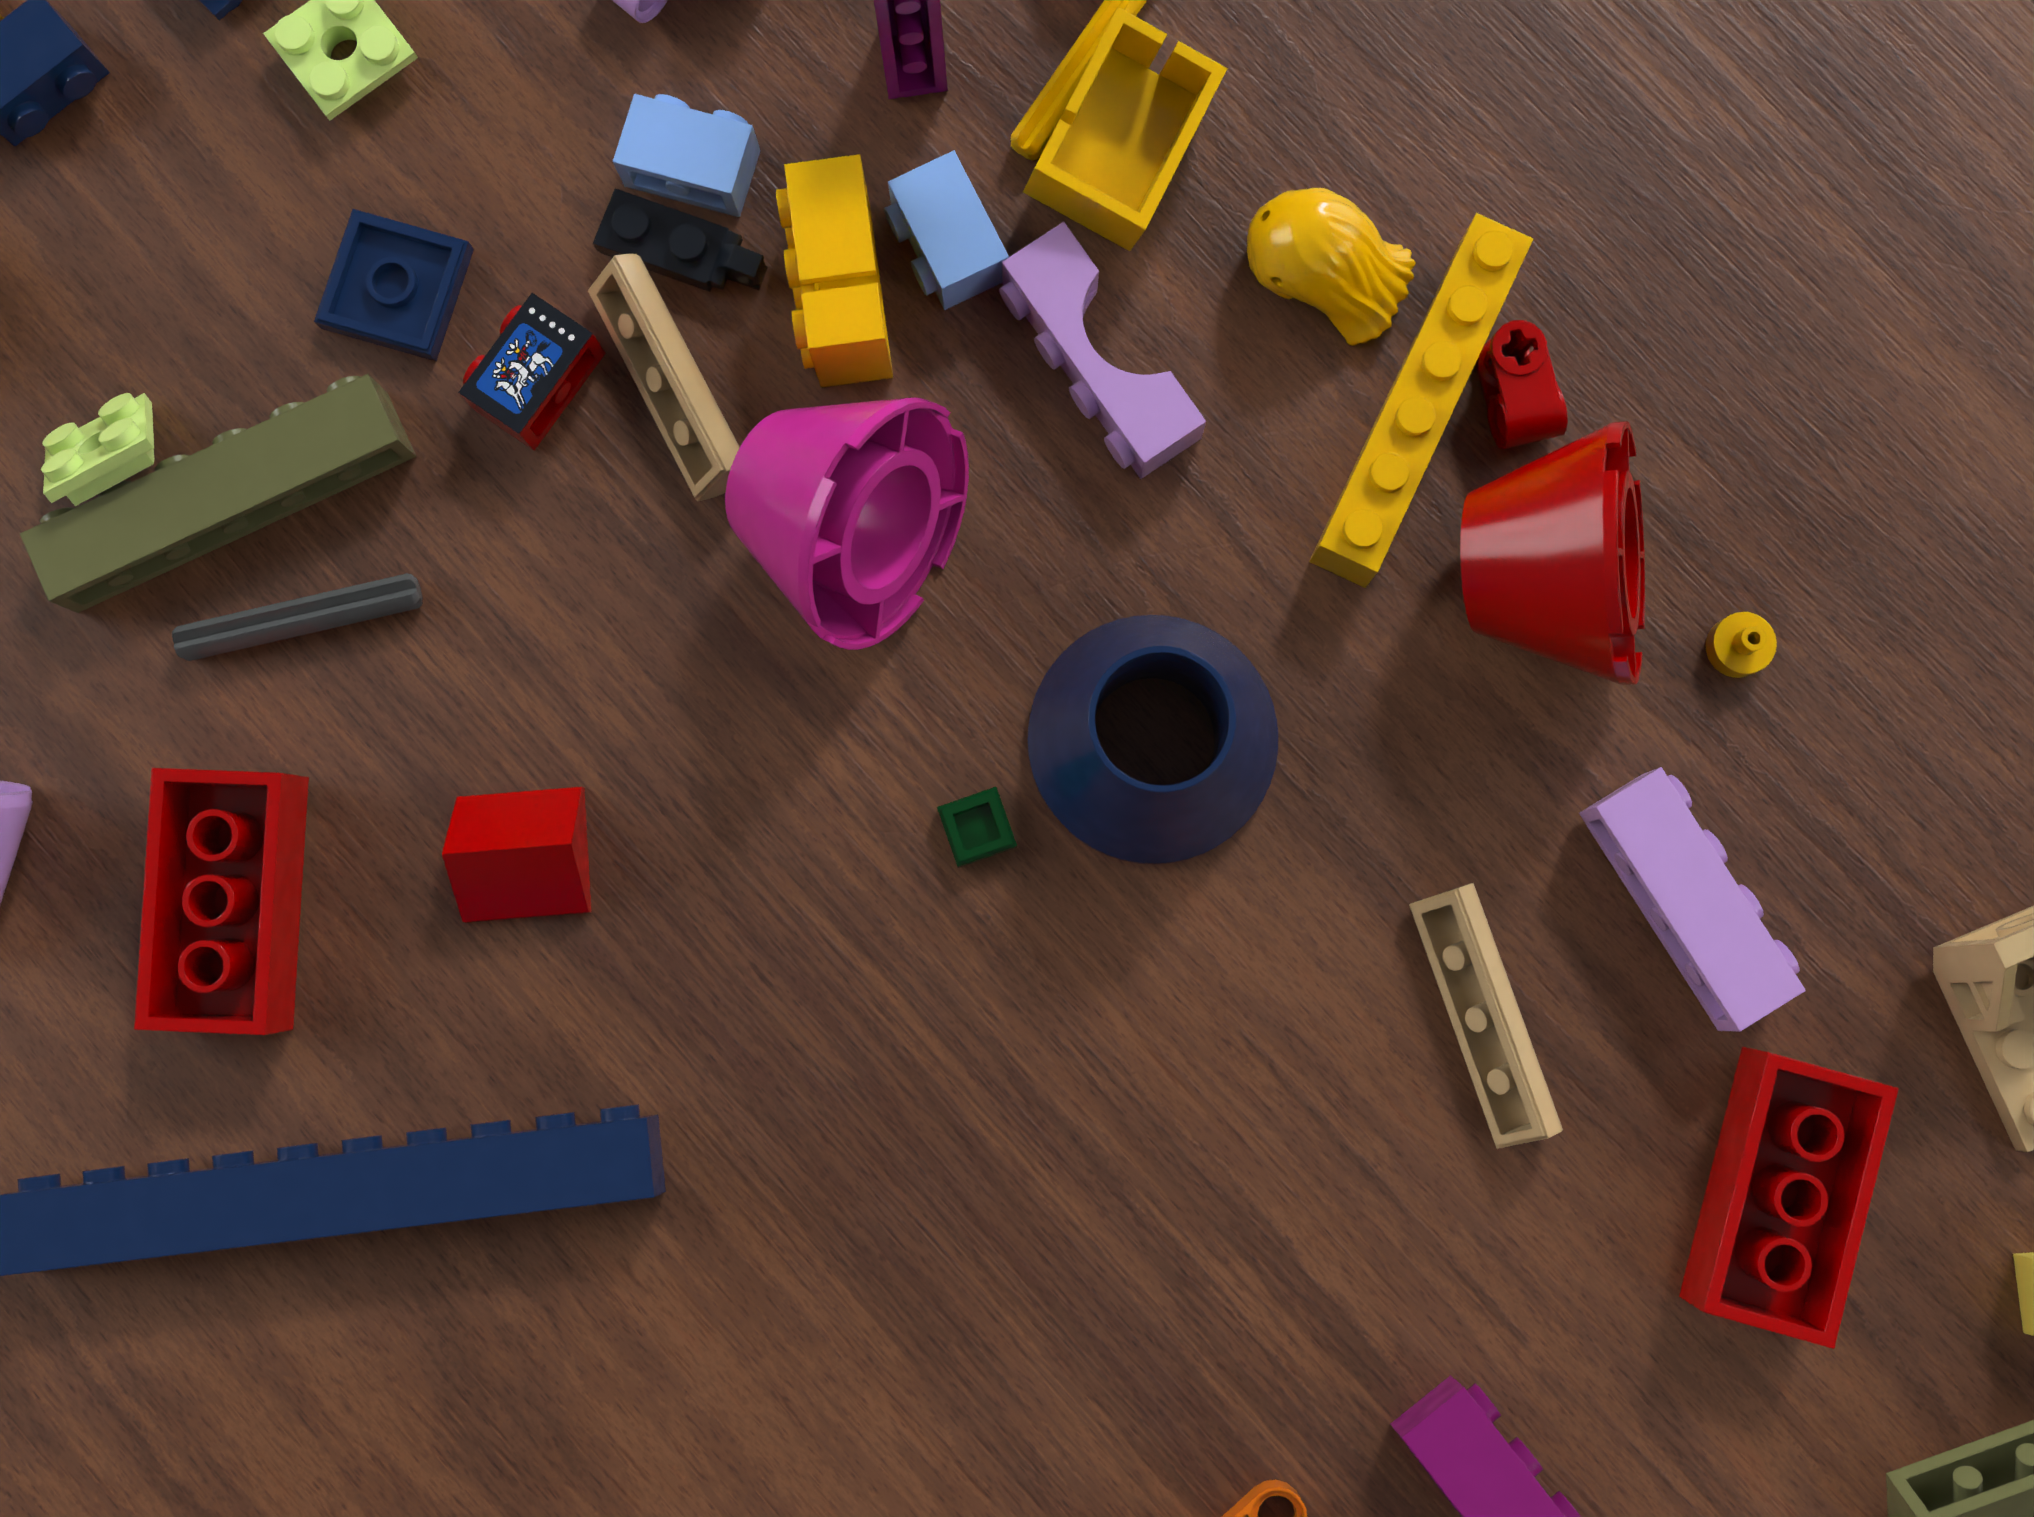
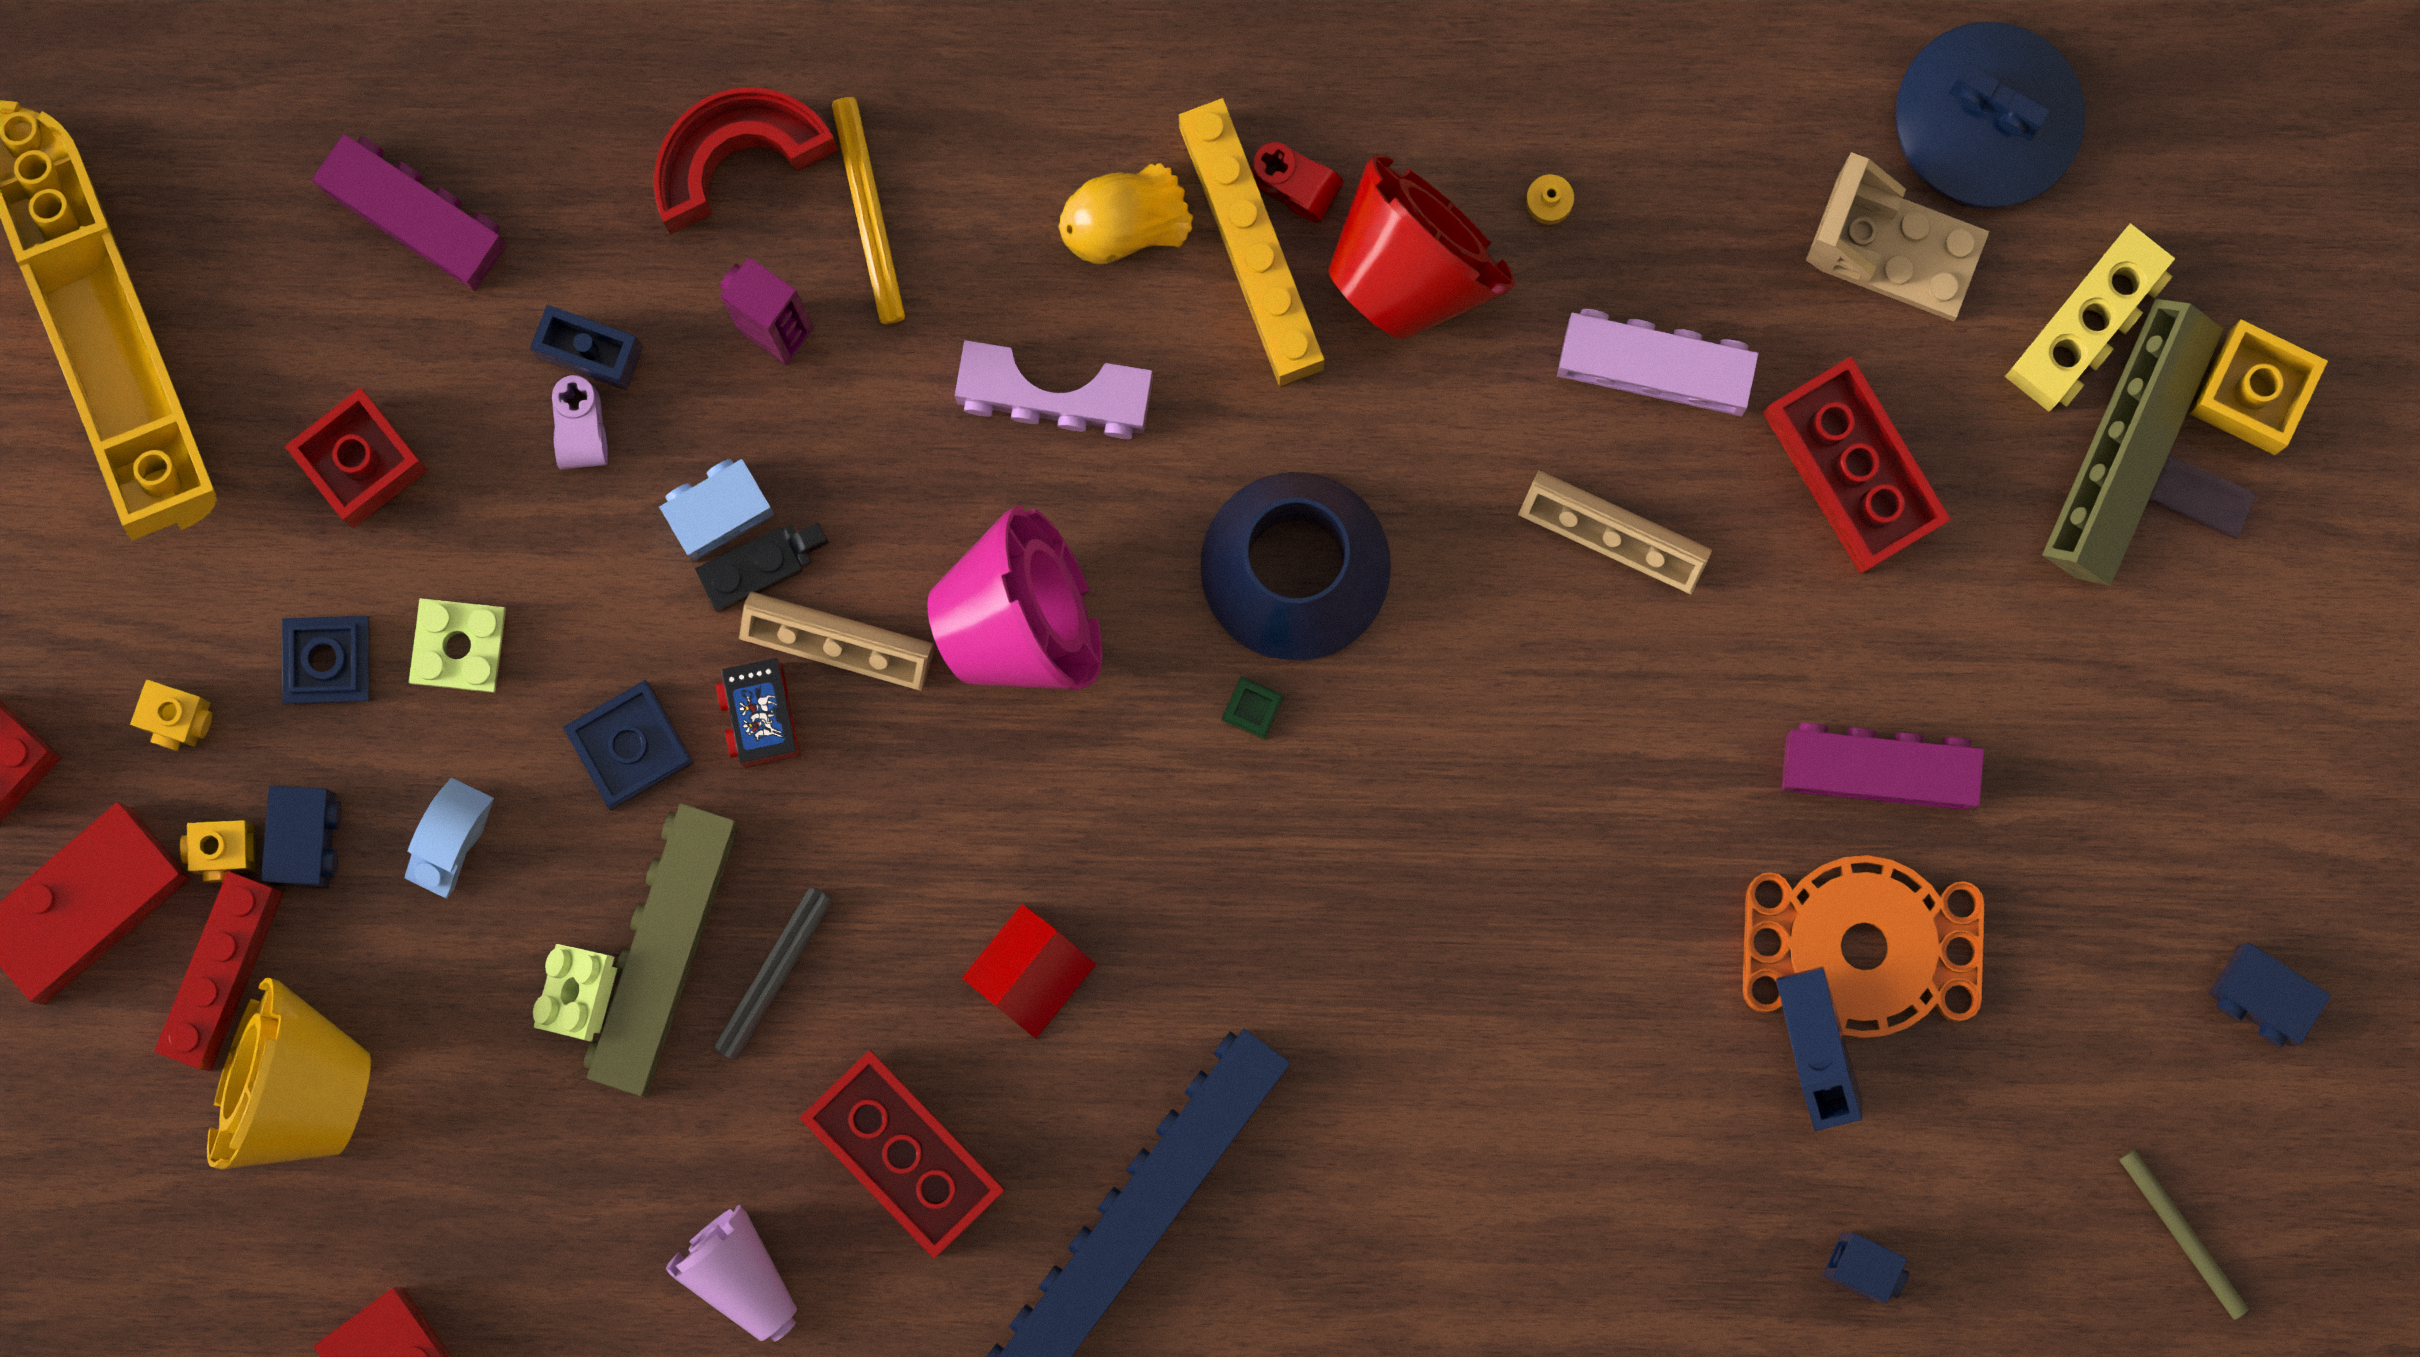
camera: 45 degrees left, 0 degrees up
(146, 190) = (446, 835): none -> light blue brick
(834, 271) = (873, 492): yellow piece -> none
(947, 230) = (902, 408): light blue brick -> none
(1124, 131) = (944, 257): yellow piece -> none

